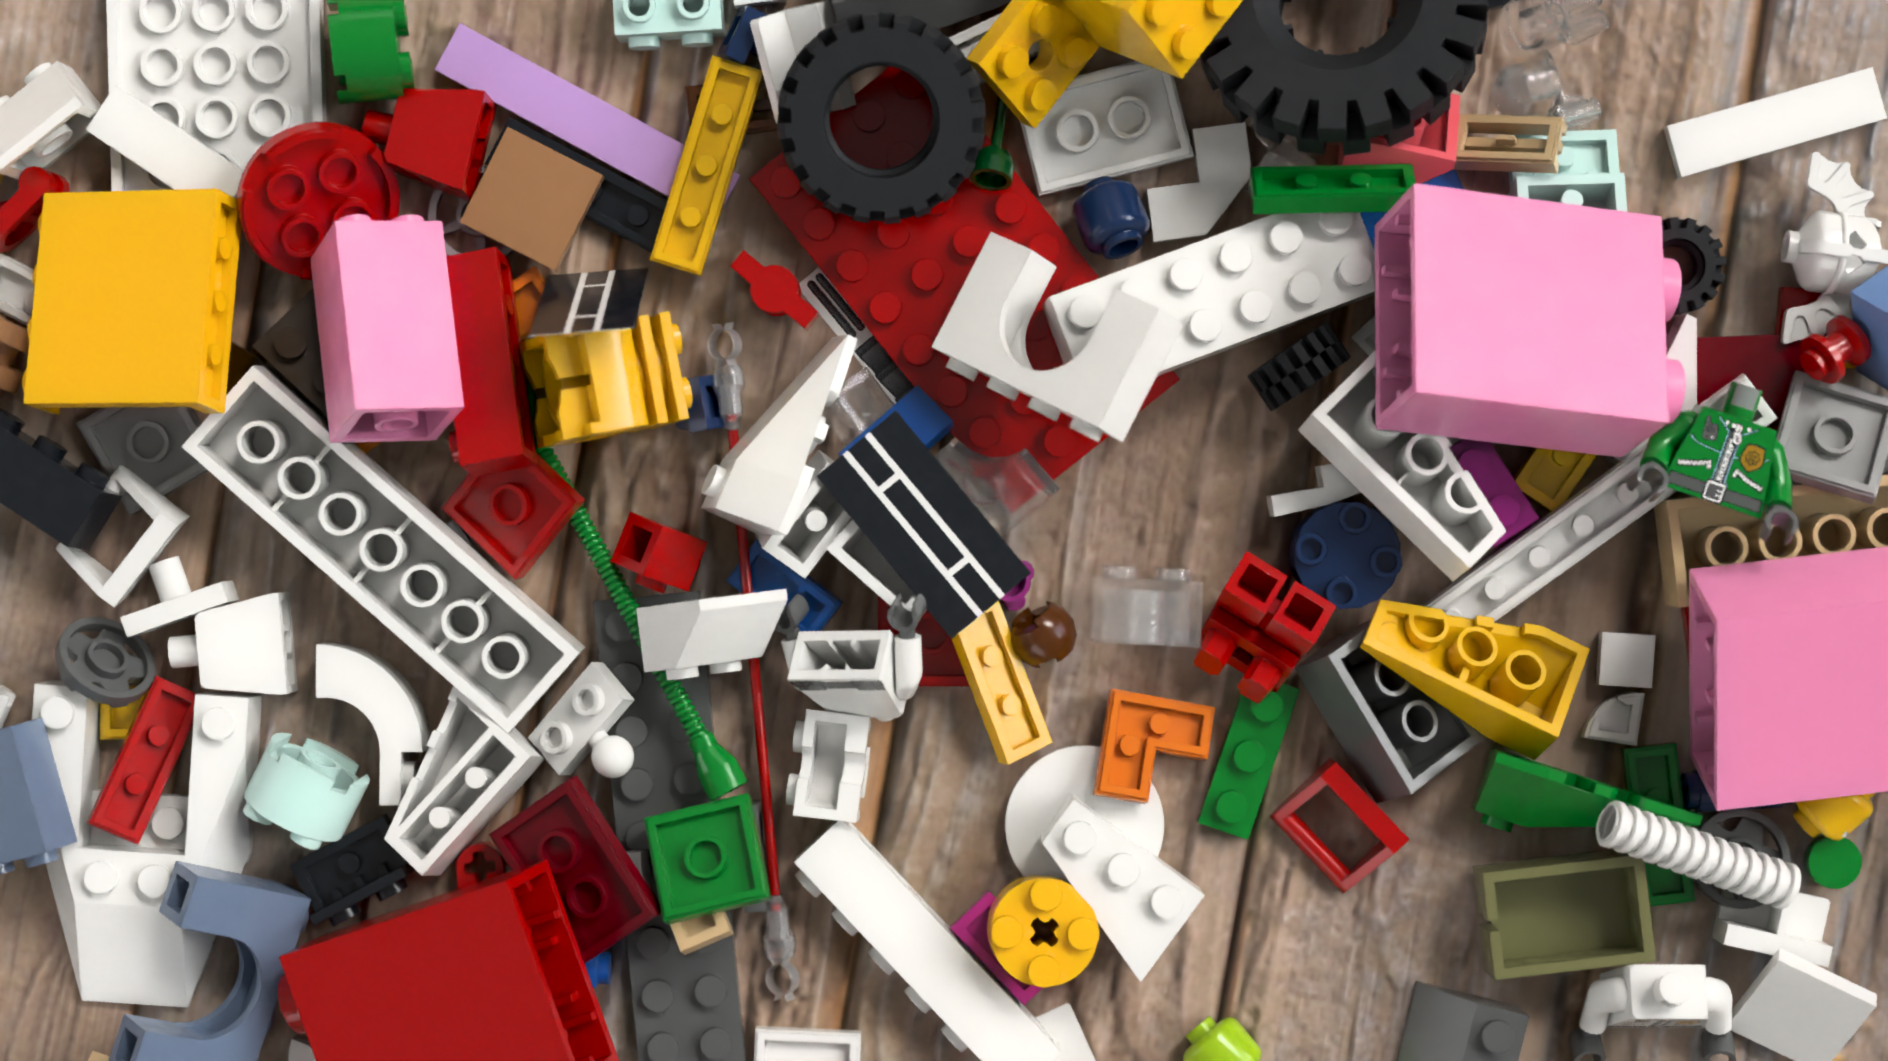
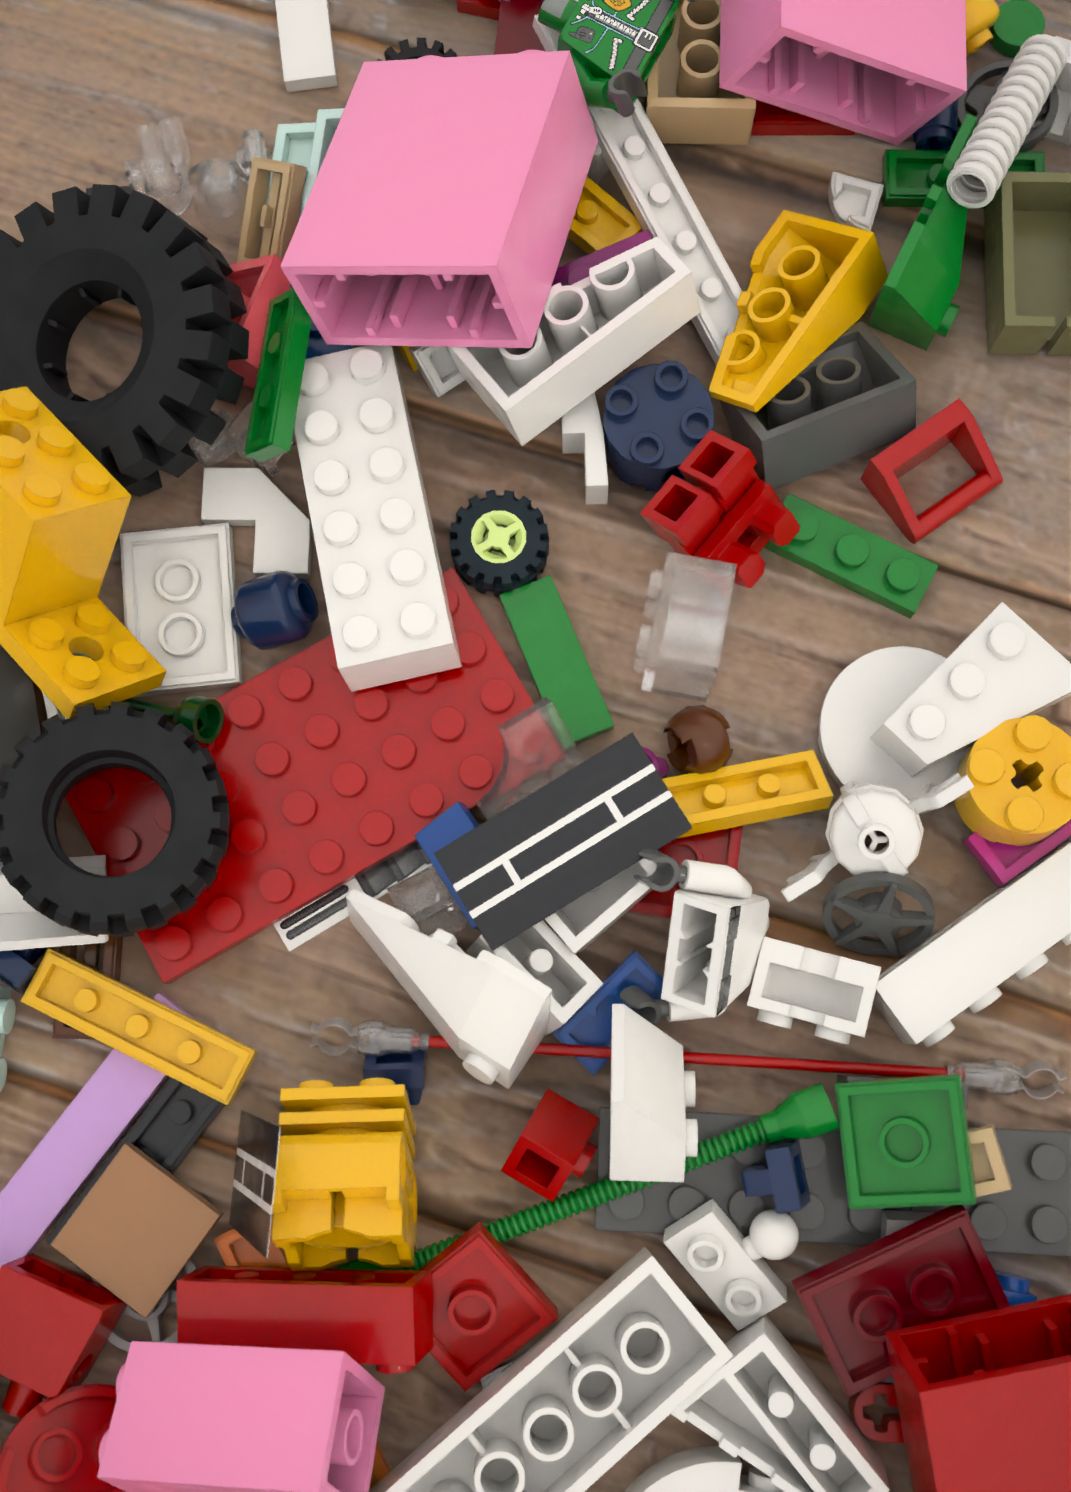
camera: 75 degrees left, 10 degrees down
(661, 756) = (780, 1176): none -> dark blue tile
(775, 290) = (285, 971): red piece -> none
(905, 817) = (878, 914): none -> dark grey wheel
(996, 803) = (870, 809): none -> white helmet
(1097, 387) = (444, 626): white arch -> none
(1105, 490) = (556, 657): none -> green tile
(1136, 730) = (812, 661): orange tile -> none
(1233, 420) = (494, 524): none -> black wheel
(1299, 366) = (458, 441): black tyre -> none
(1625, 659) = (796, 185): white tile -> none

